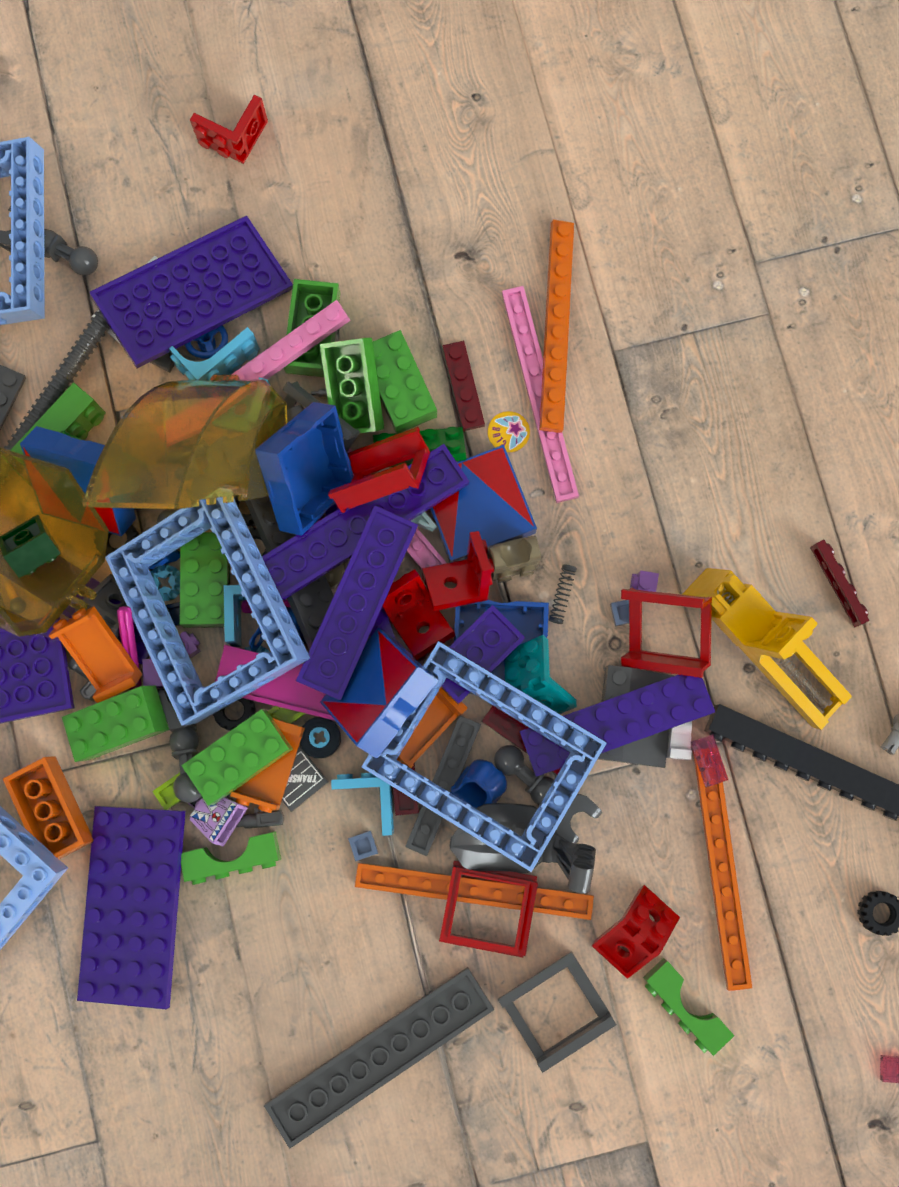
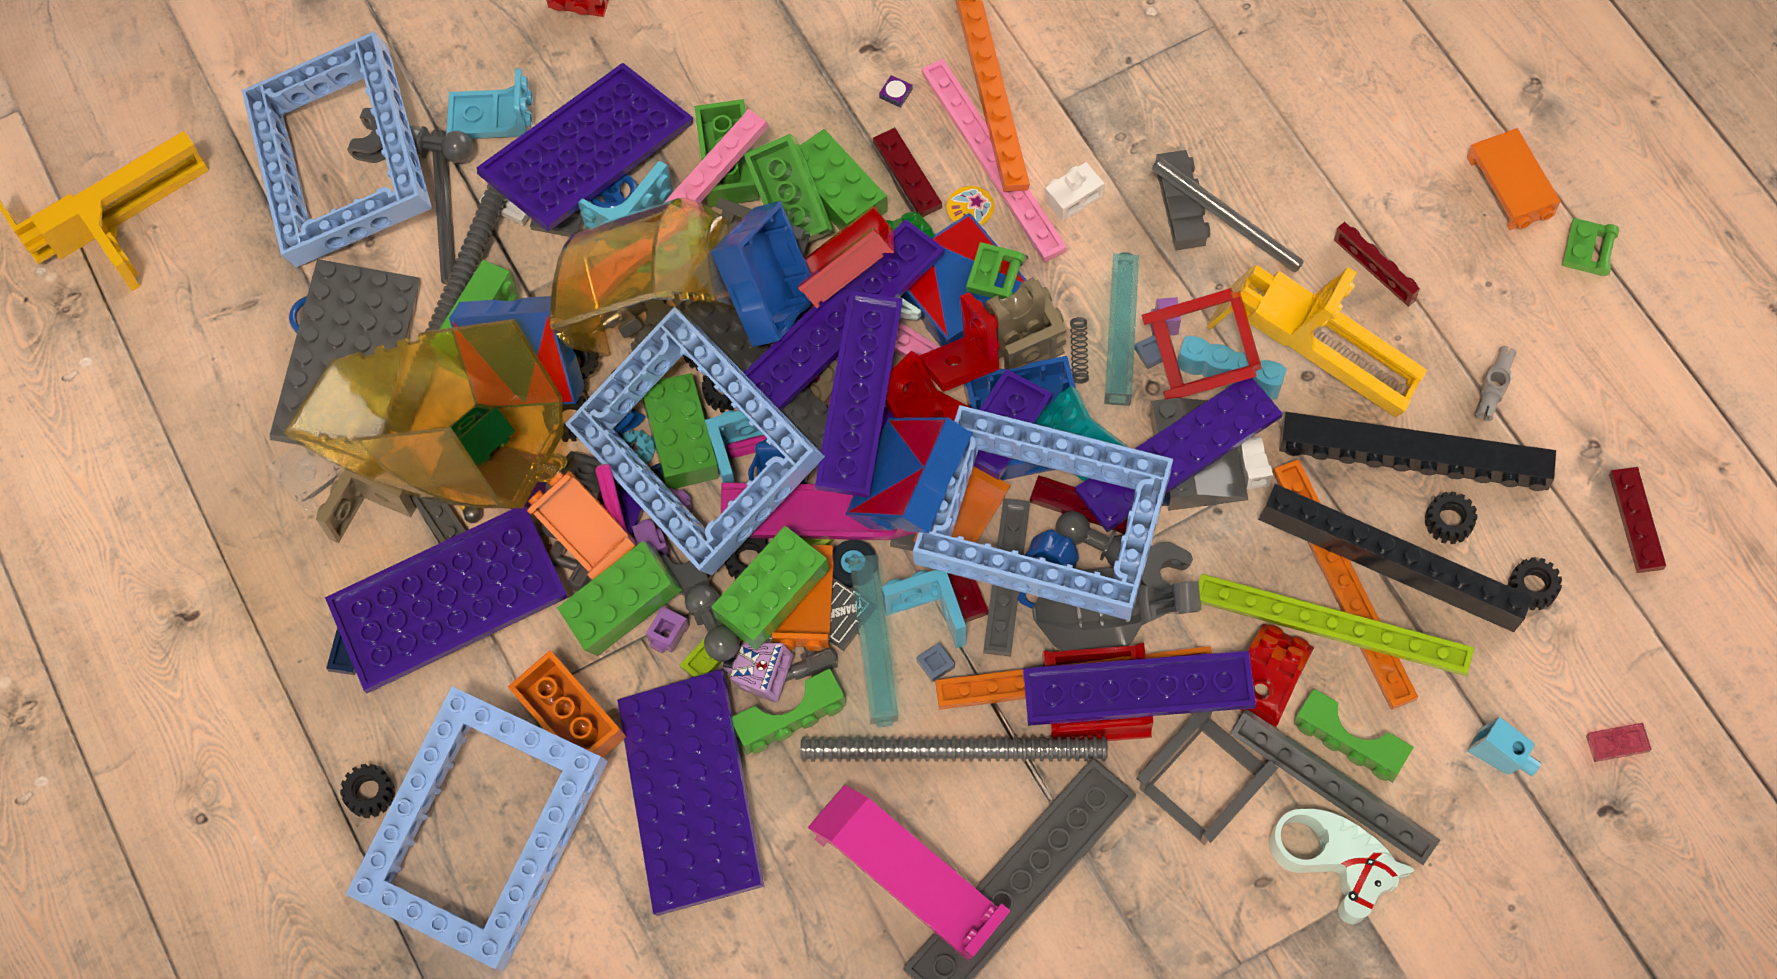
camera: 10 degrees left, 15 degrees down
(60, 316) = (443, 211): none -> dark grey axle
(121, 233) = (492, 111): none -> medium azure bracket
(140, 761) = (666, 622): none -> medium lavender brick
(288, 1032) = (908, 871): none -> dark pink panel
(315, 816) = (873, 640): none -> clear light blue brick
(357, 926) = (953, 748): none -> dark grey piece
(474, 304) = (895, 91): none -> tile
(502, 506) = (987, 268): none -> bright green plate
(521, 927) = (1139, 688): none -> dark purple plate
(532, 586) = (1042, 344): none -> dark tan bracket
(600, 443) = (1073, 191): none -> white brick
(604, 584) = (1121, 329): none -> clear light blue brick
(659, 1047) = (1335, 787): none -> dark grey plate
(662, 1118) = (1349, 850): none -> light aqua animal
(680, 642) = (1201, 358): none -> medium azure brick
(690, 477) = (1182, 212): none -> dark grey brick
(703, 909) = (1336, 625): none -> lime plate
(709, 760) = (1293, 470): clear pink plate -> none
(724, 505) = (1227, 215): none -> dark grey axle
(771, 864) = (1396, 558): none -> black brick
(808, 1054) = (1504, 748): none -> medium azure torso
(844, 837) = (1460, 506): none -> black tyre

